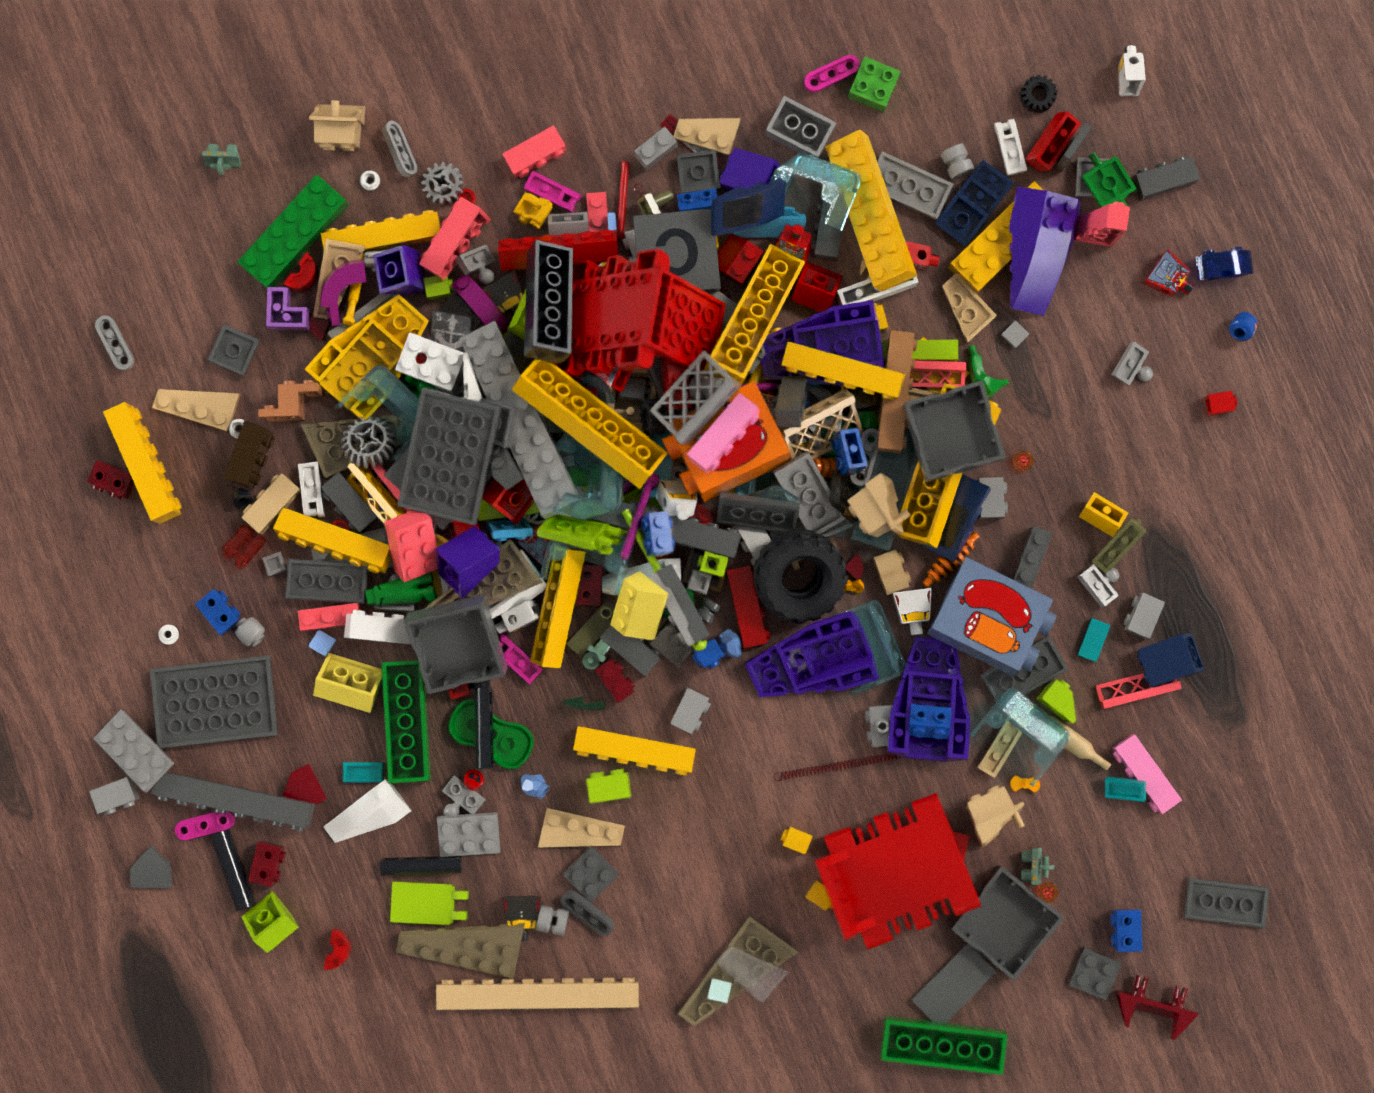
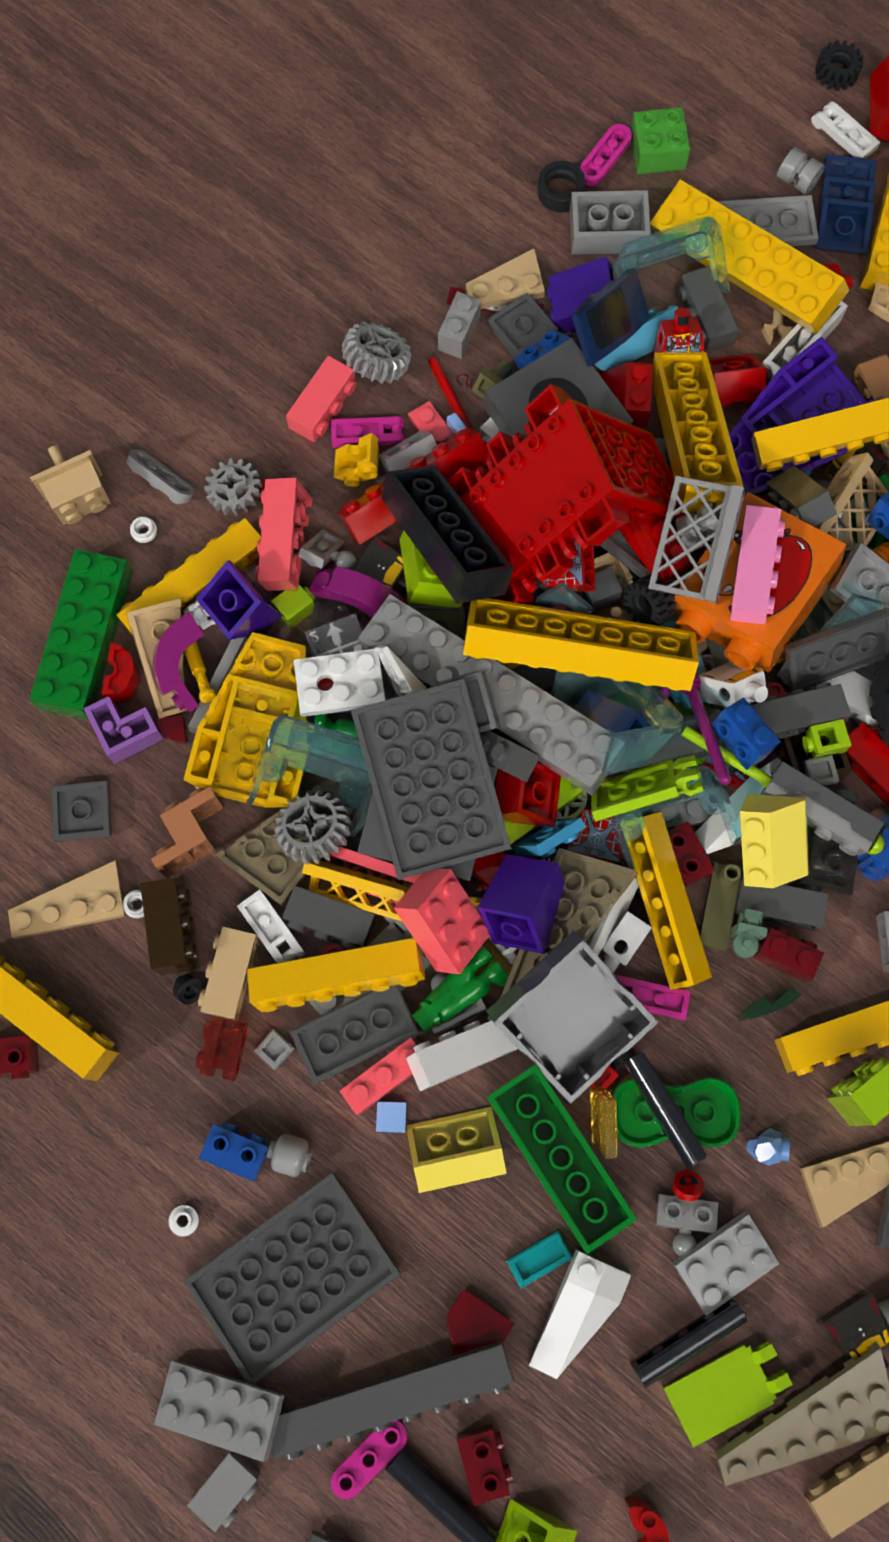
camera: 30 degrees left, 10 degrees down
(441, 721) = (604, 1122): none -> clear yellow plate
(581, 477) = (609, 713): none -> dark blue brick
(582, 145) = (376, 352): none -> light grey gear
(786, 66) = (555, 170): none -> black tyre

